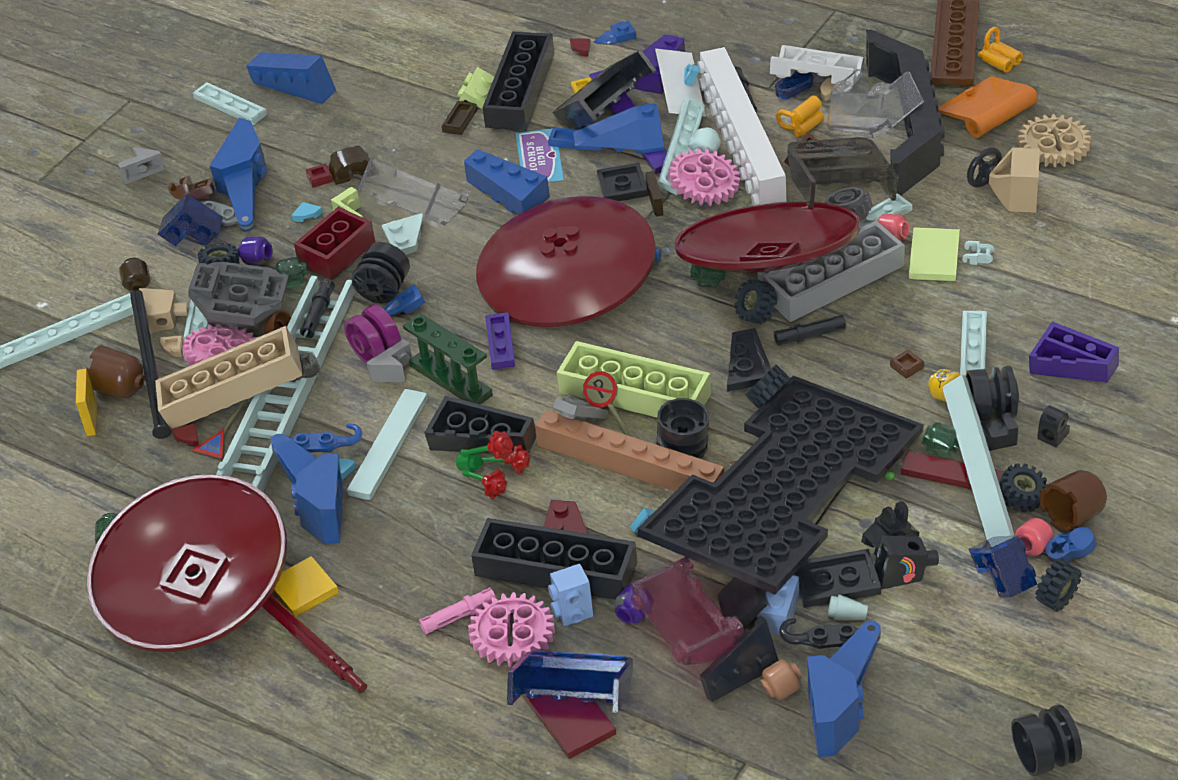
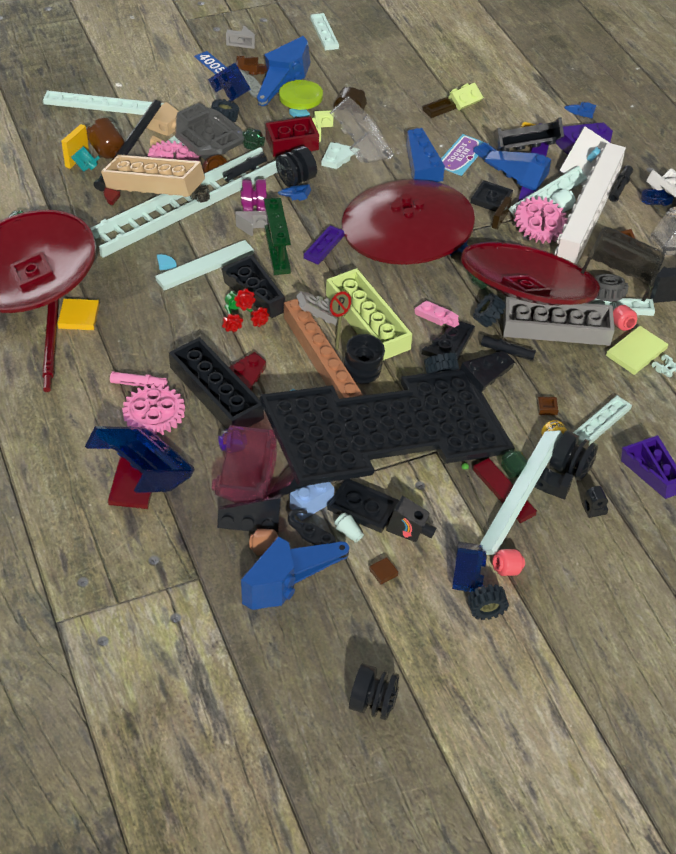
camera: 30 degrees right, 5 degrees up
(111, 413) = (85, 159): none -> teal bracket
(132, 215) = (210, 62): none -> blue sticker
(134, 274) = (175, 94): dark brown head -> none
(214, 445) = (118, 209): piece -> none
(255, 251) = (248, 117): dark purple head -> none
(289, 190) = (301, 94): none -> lime piece
(293, 74) = (371, 33): blue wedge -> none
(315, 480) = (138, 262): blue slope -> none
(319, 175) = (329, 96): dark red tile -> none
(518, 81) = (491, 103): black brick -> none
(570, 595) = (199, 411): light blue brick -> none
(580, 45) = (552, 105): dark red tile -> none
(702, 340) = (437, 314): none -> bright pink hinge
(803, 117) = (640, 218): light orange piece -> none
(814, 363) = (487, 368): none -> black wing
(889, 523) = (423, 496): black hinge -> none
(923, 627) = (383, 570): none -> reddish brown tile
(1020, 498) = (532, 535): black bush -> none
(1072, 545) = (531, 585): blue piece -> none
(1073, 499) = (557, 556): reddish brown cylinder -> none

